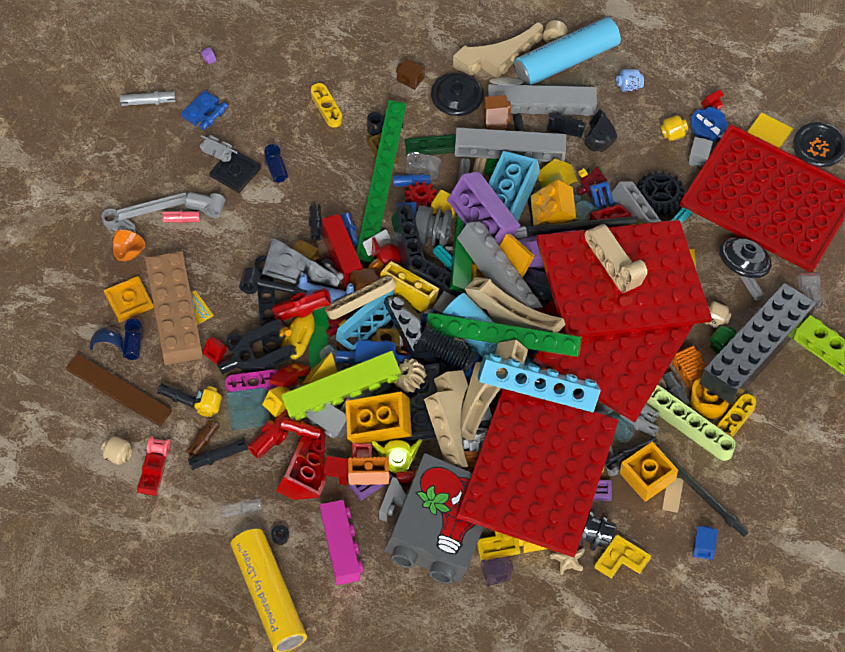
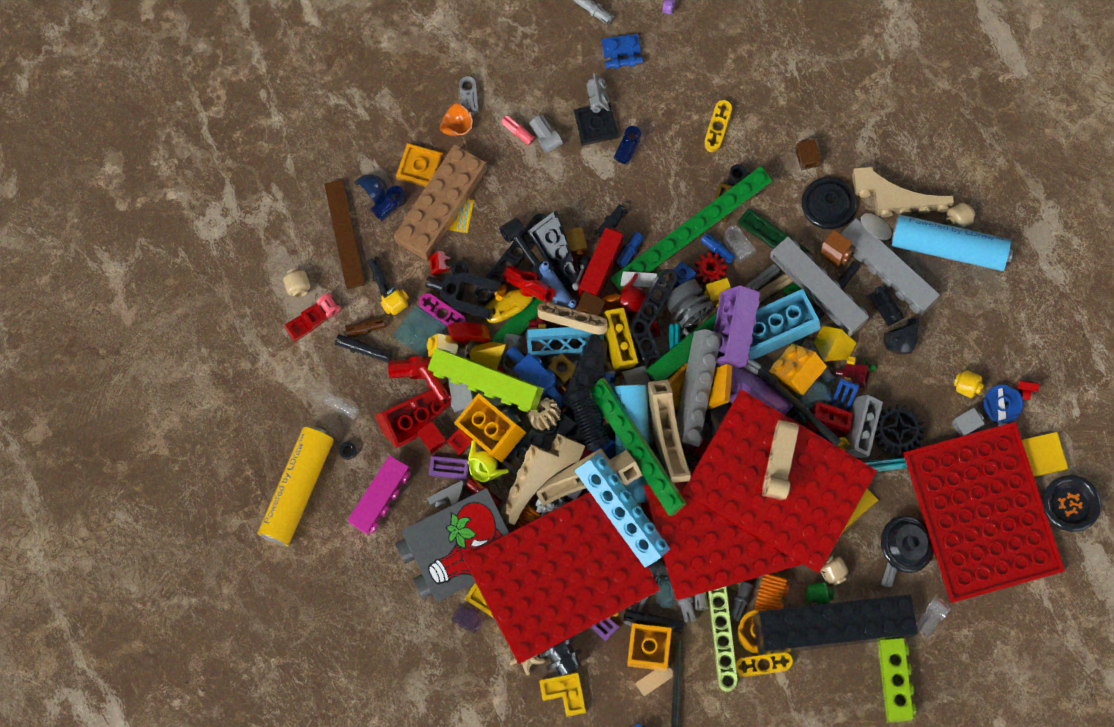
camera: 50 degrees right, 15 degrees up
(151, 206) = (503, 102): light grey axle -> none
(368, 470) = (447, 461): orange brick -> none
(630, 80) = (976, 311): light blue head -> none

